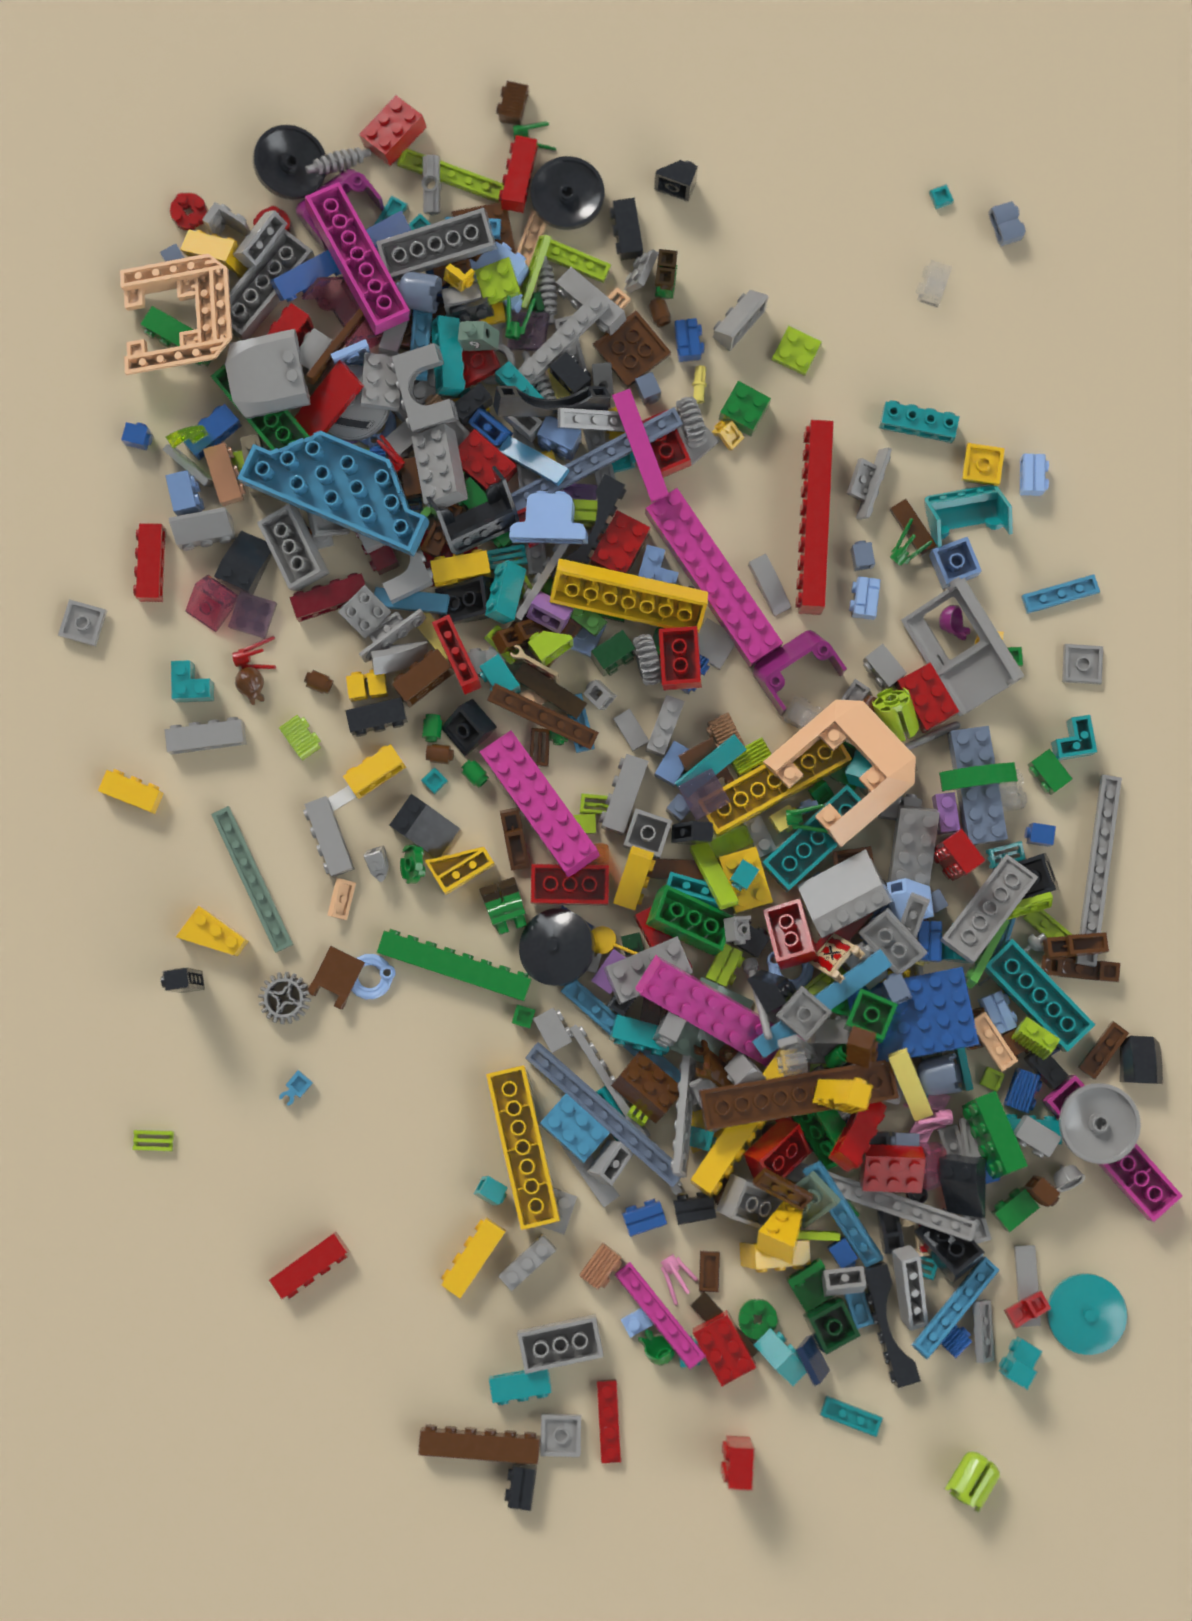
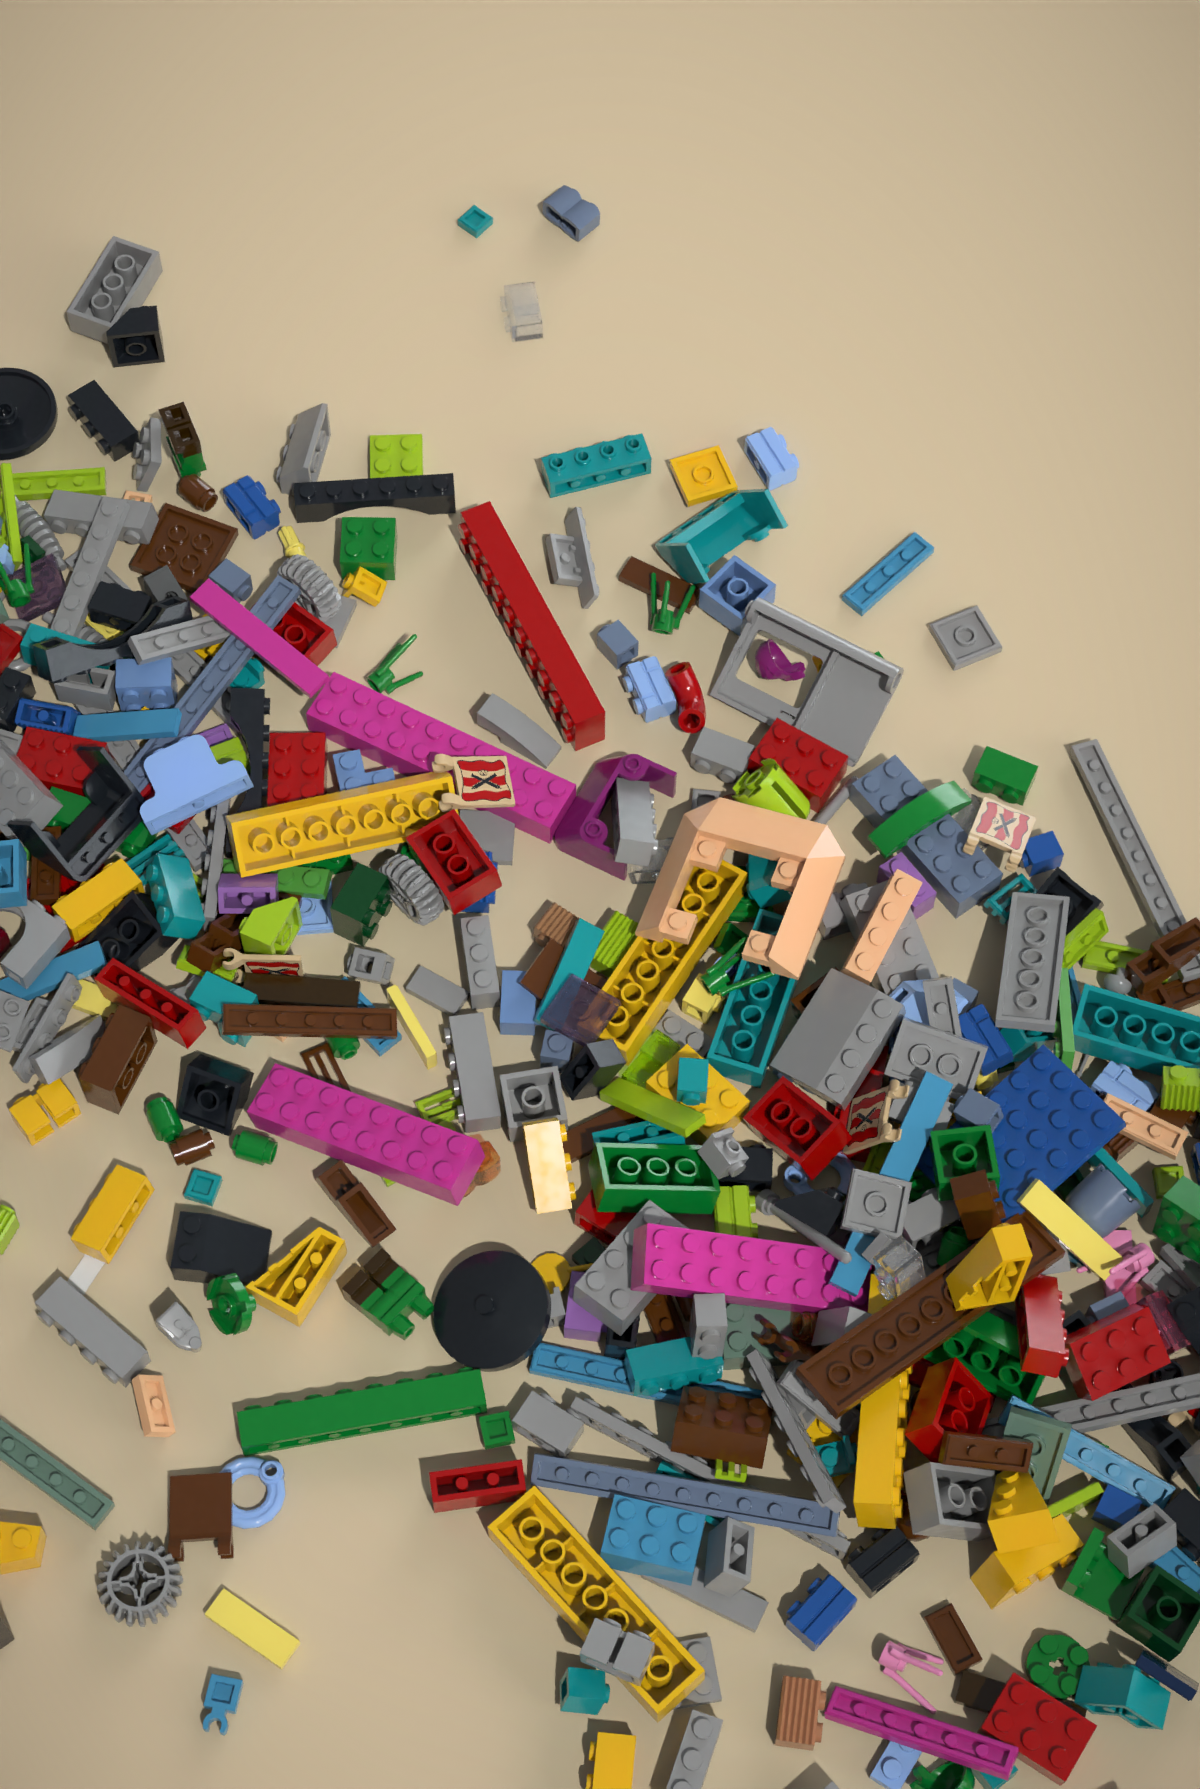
camera: 30 degrees left, 20 degrees down
(333, 1055) = (252, 1628): none -> light yellow tile
(376, 717) = (78, 1143): black brick -> none
(494, 1045) = (477, 1485): none -> red brick
(516, 1186) = (616, 1651): none -> light grey piece
(584, 887) = (448, 1233): red brick -> none
(603, 745) = (412, 1027): none -> light yellow tile
(681, 133) = (115, 285): none -> light grey brick
(706, 502) = (382, 676): none -> green plant
(724, 612) = (478, 781): none -> tan flag
(743, 362) = (423, 493): none -> black arch
(802, 688) = (633, 822): none -> light grey brick
(885, 618) = (688, 697): none -> red cylinder
(908, 842) = (881, 927): none -> light nougat brick
(957, 855) = (953, 916): red brick -> none
(1024, 809) = (1001, 828): none -> flag
(1080, 740) = (1017, 720): teal brick -> none

